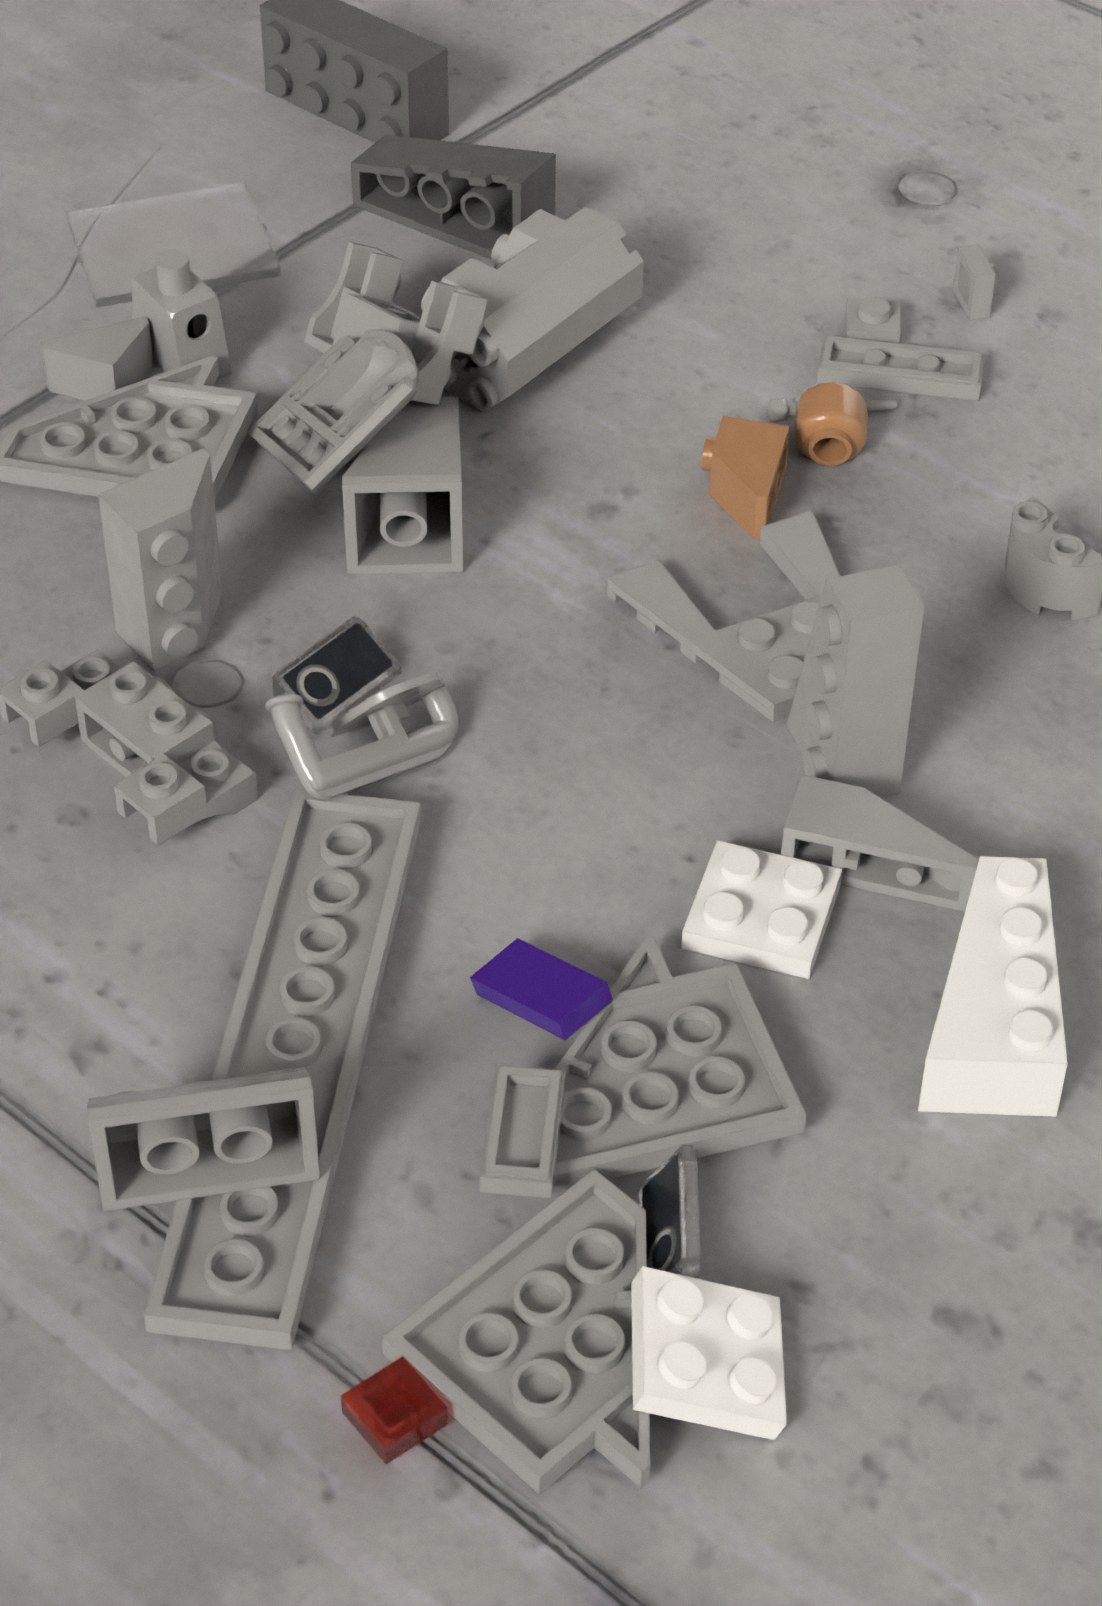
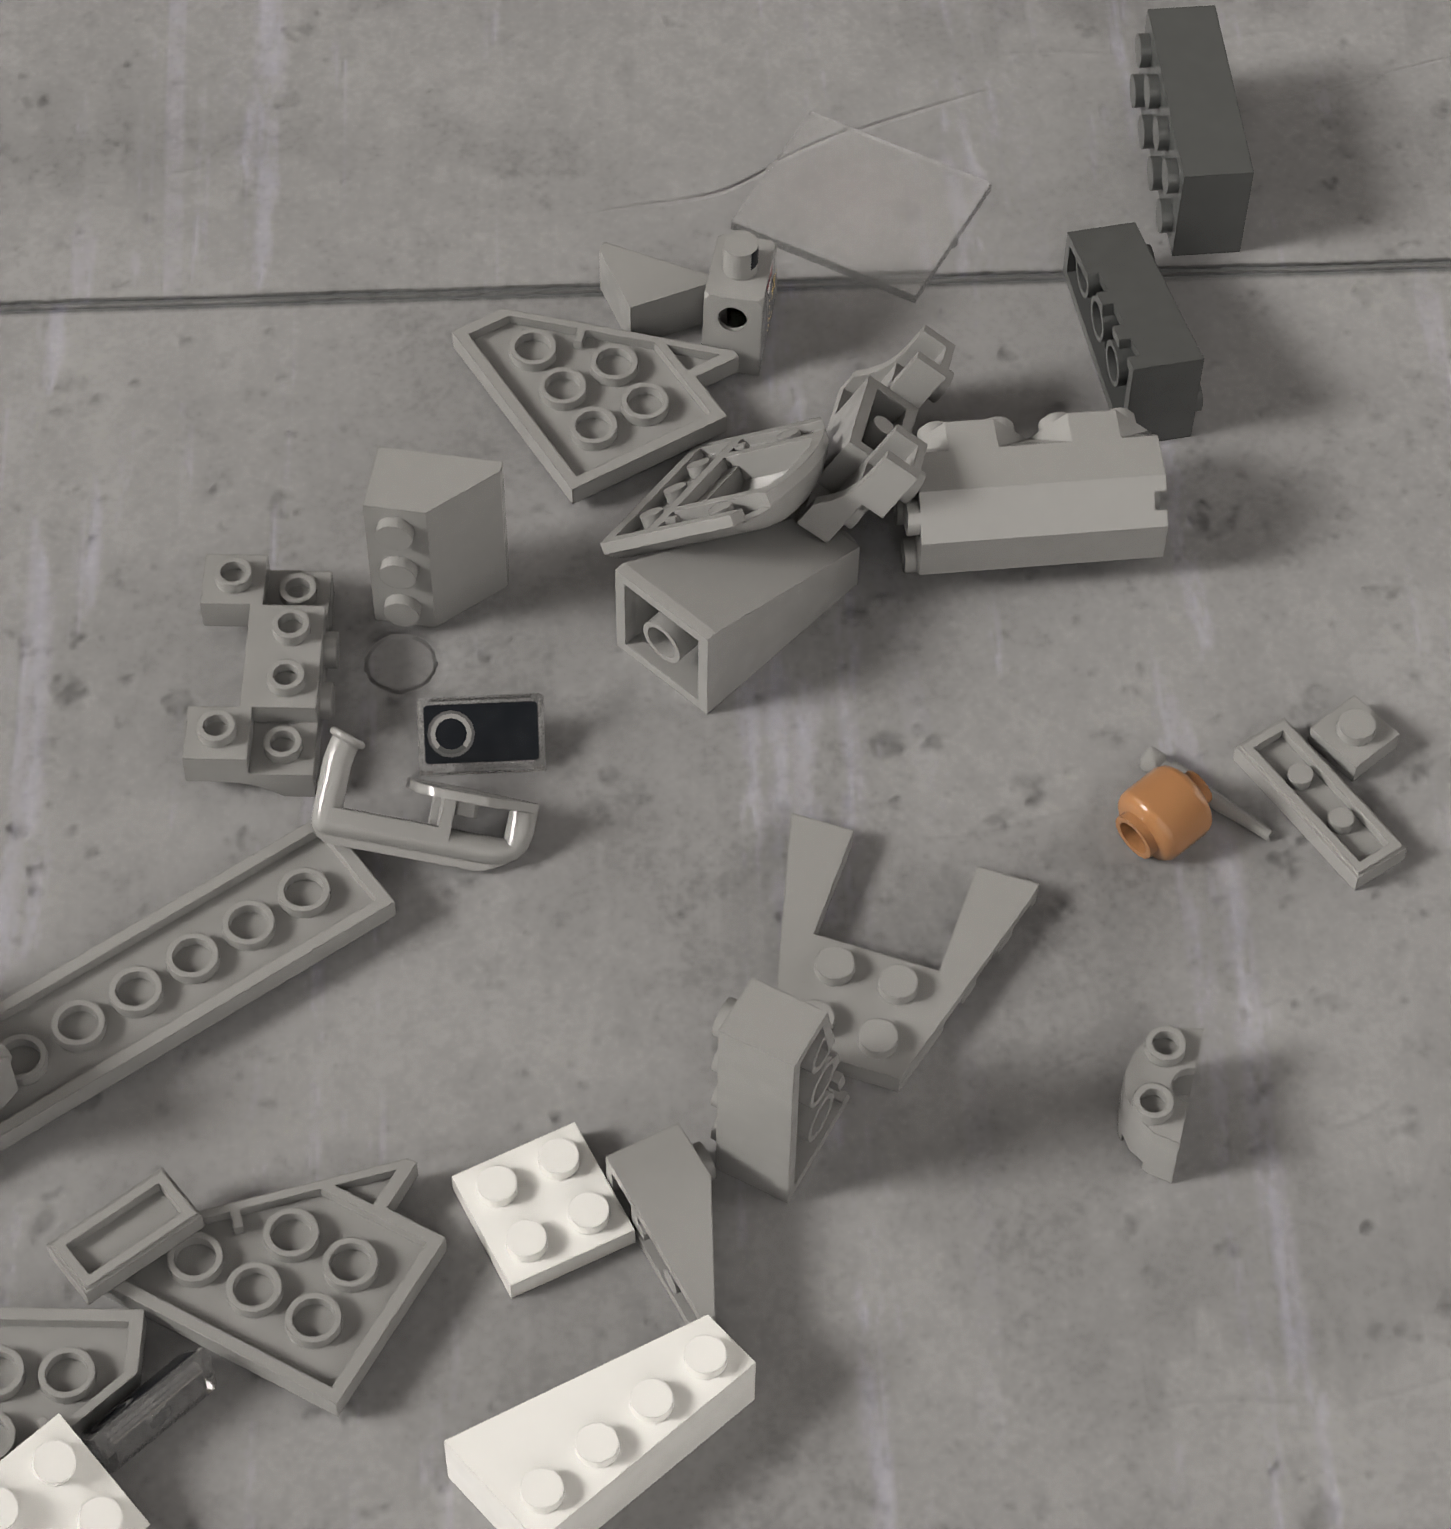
camera: 45 degrees right, 10 degrees up
(541, 988) = (288, 1134): dark purple tile -> none
(747, 469) = (1034, 804): medium nougat slope -> none

